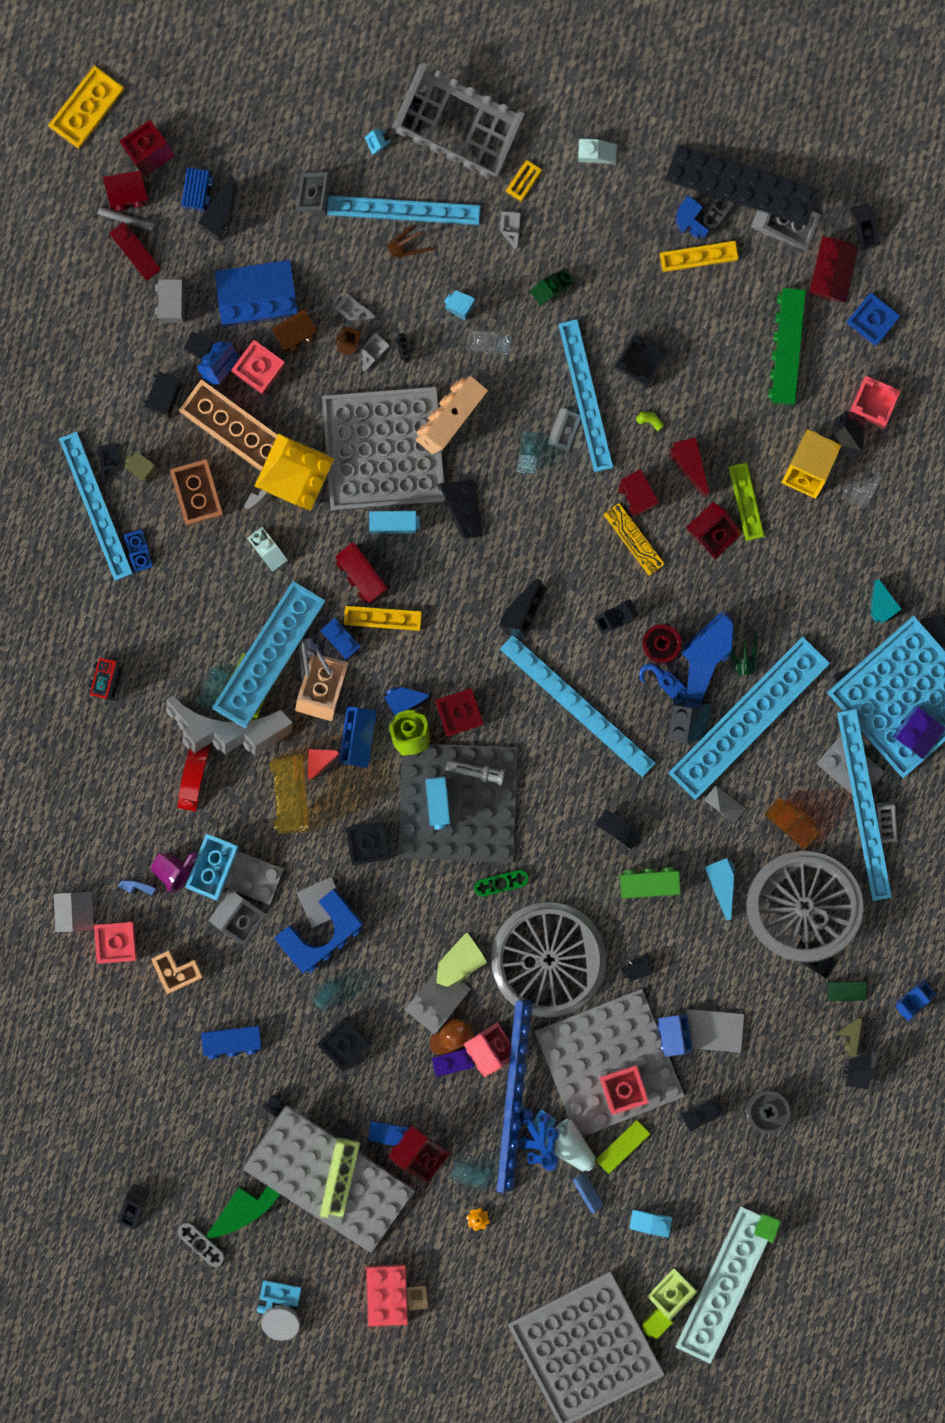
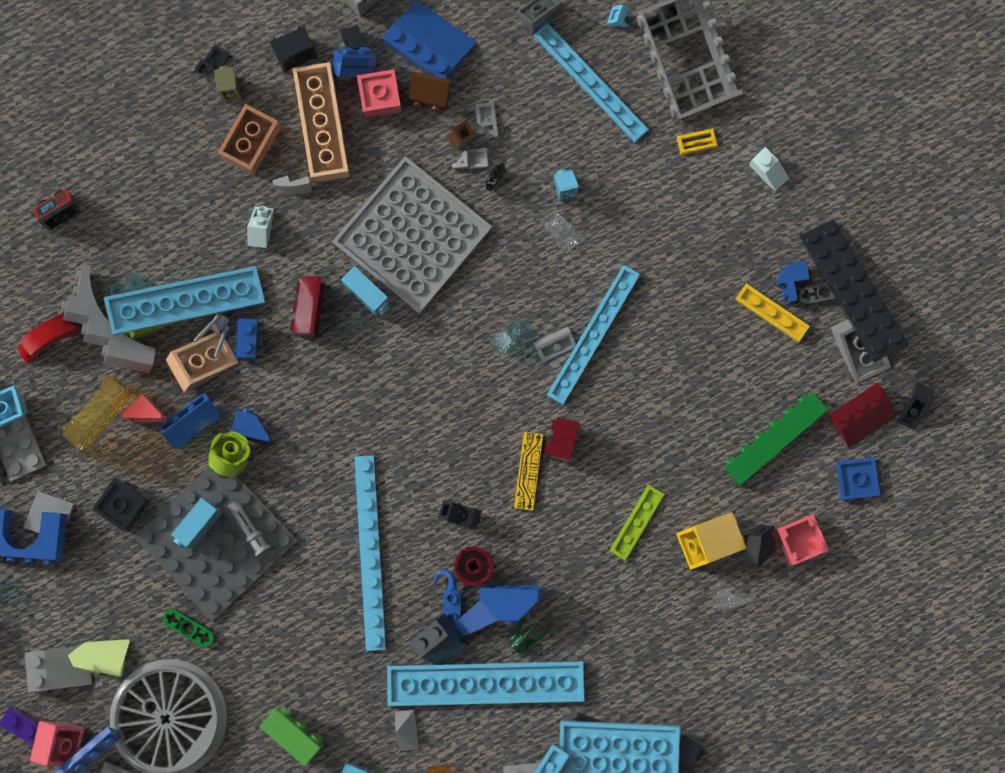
camera: 50 degrees right, 5 degrees down
(95, 506) = (171, 83): medium azure plate -> none
(138, 550) = (171, 142): blue slope -> none
(294, 472) = (330, 188): yellow slope -> none
(382, 618) = (293, 354): yellow plate -> none
(396, 246) = (560, 103): reddish brown plant -> none
(451, 414) = (477, 254): light nougat brick -> none
(451, 1037) = (41, 706): dark orange piece -> none
(459, 712) = (279, 474): dark red container -> none
(463, 505) = (428, 330): black wing -> none
(510, 227) = (655, 165): light grey slope -> none
(521, 613) = (397, 445): black slope -> none
(552, 286) = (644, 234): dark green slope -> none
(618, 829) = (310, 672): black brick -> none
(640, 361) = (657, 347): black container -> none
(650, 417) = (625, 394): lime arm -> none
(689, 462) = (622, 450): dark red slope -> none
(714, 530) = (592, 520): dark red slope -> none
(882, 603) = (665, 694): teal slope -> none

